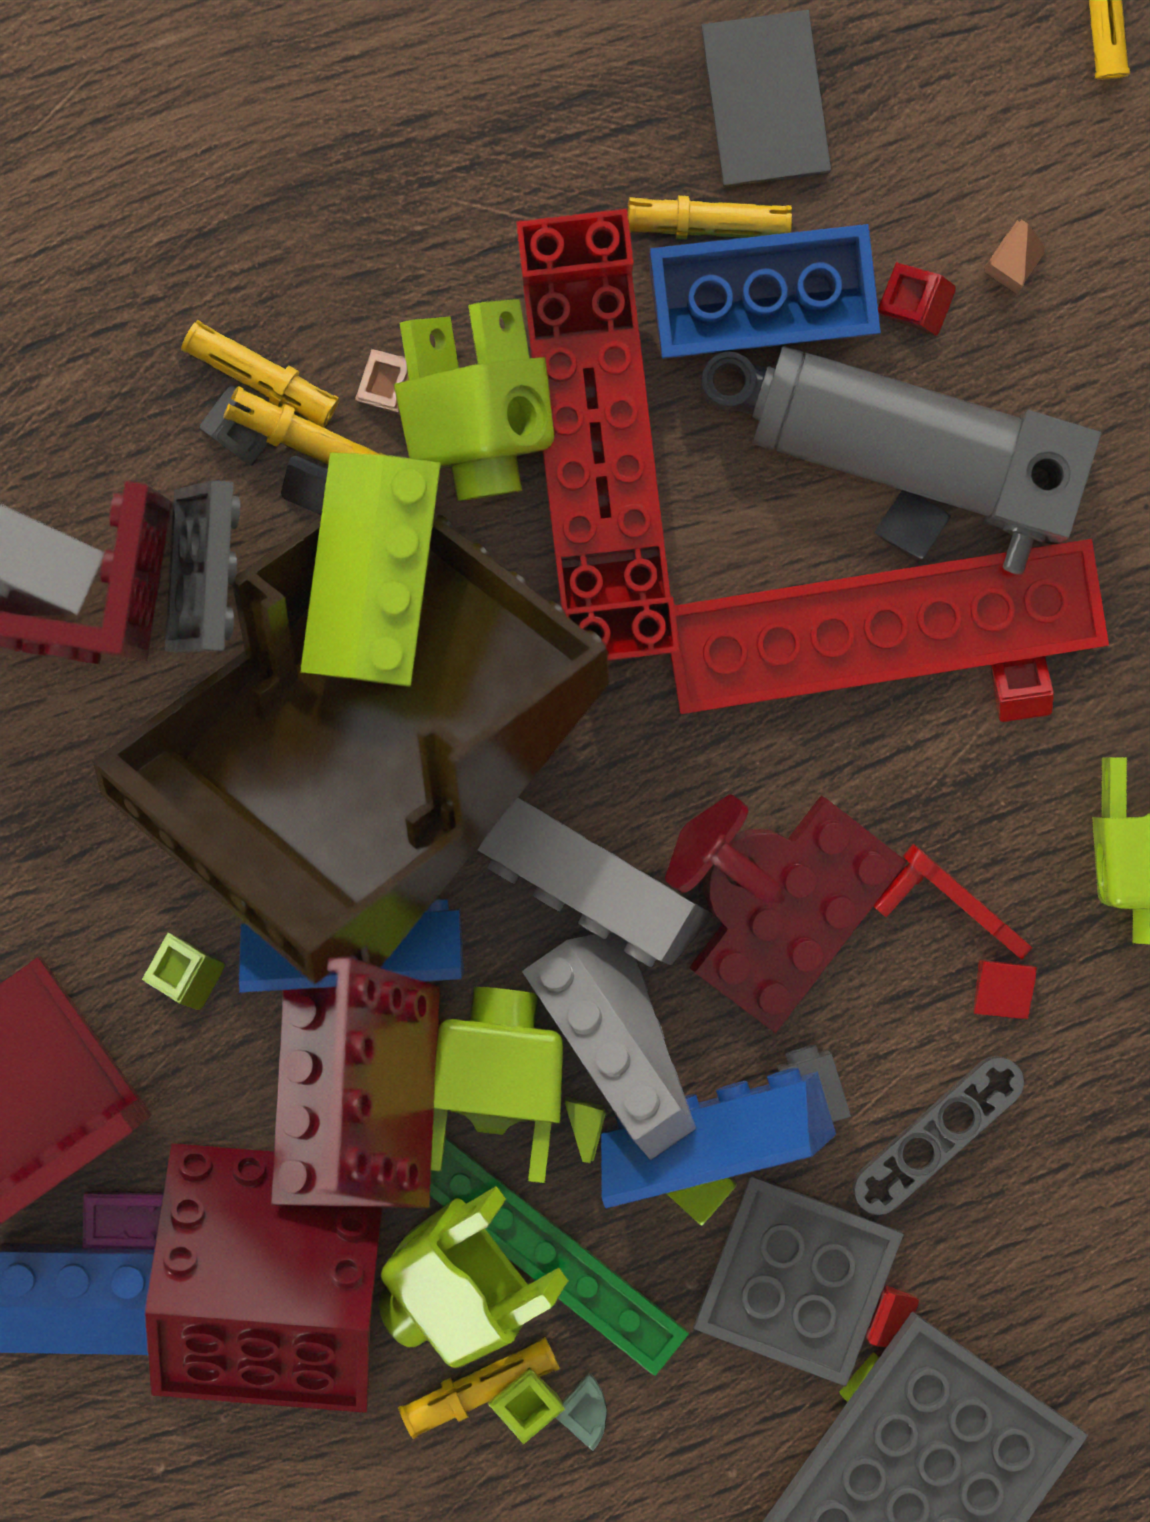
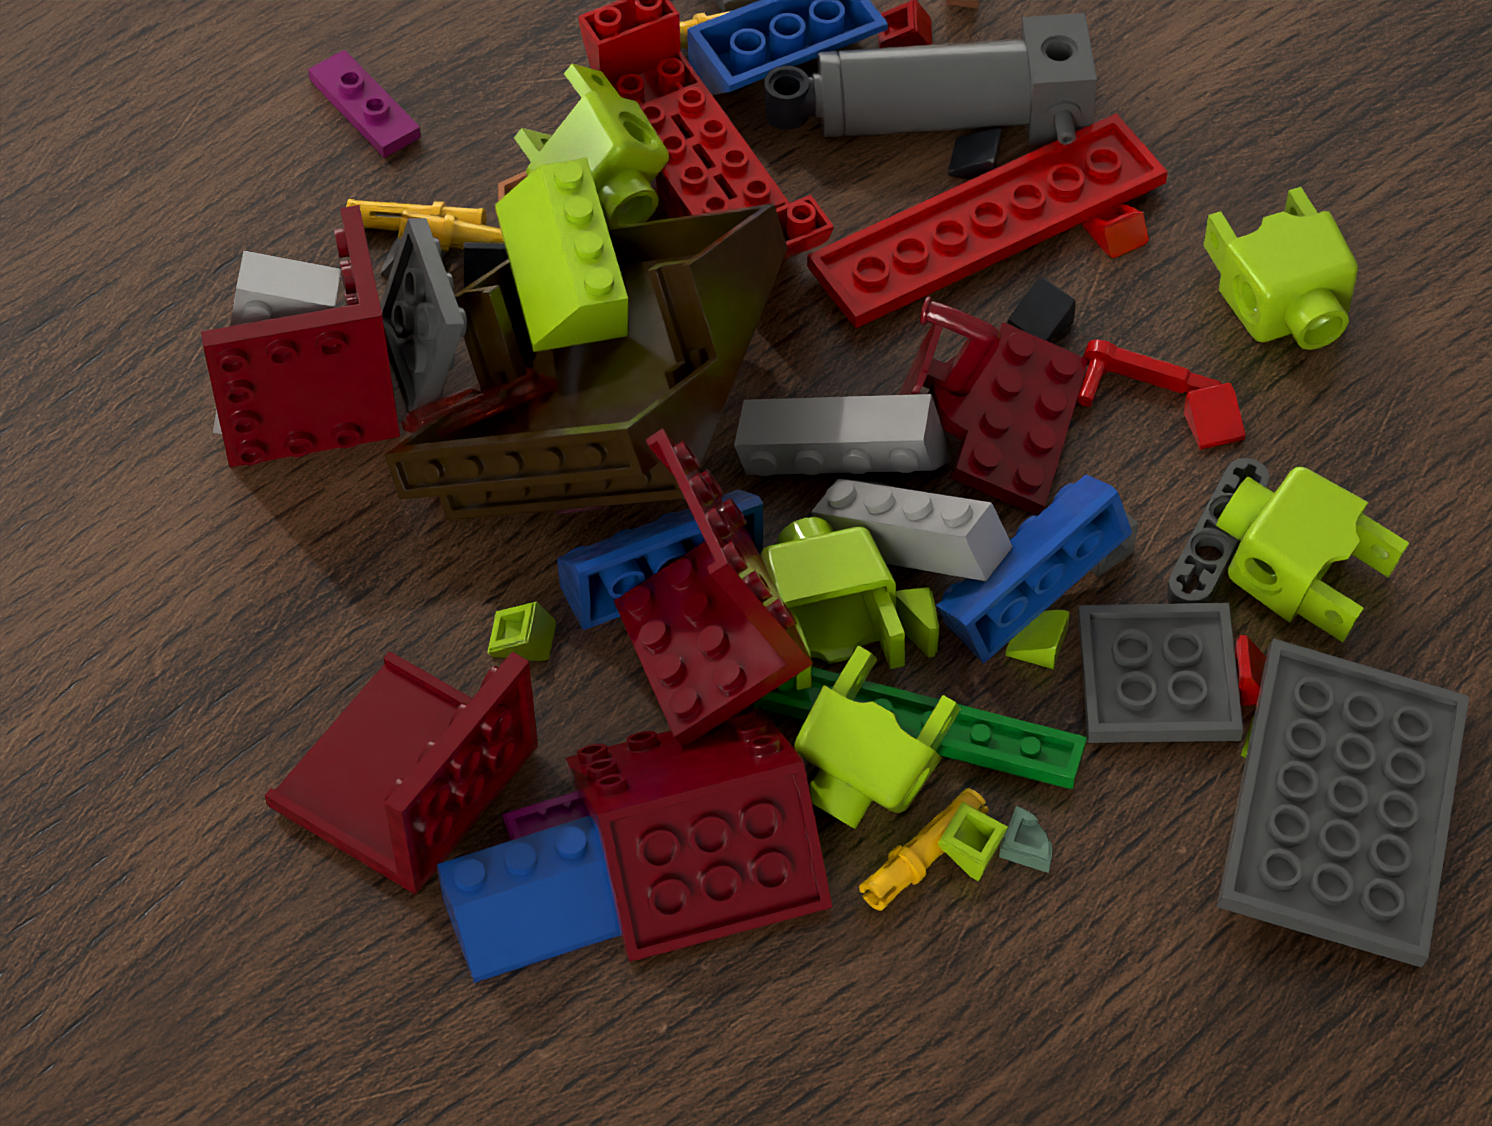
camera: 15 degrees left, 35 degrees down
(233, 695) = (482, 405): none -> clear red piece
(261, 170) = (364, 103): none -> magenta plate
(885, 779) = (1044, 311): none -> black slope
(1002, 1207) = (1295, 539): none -> lime piece

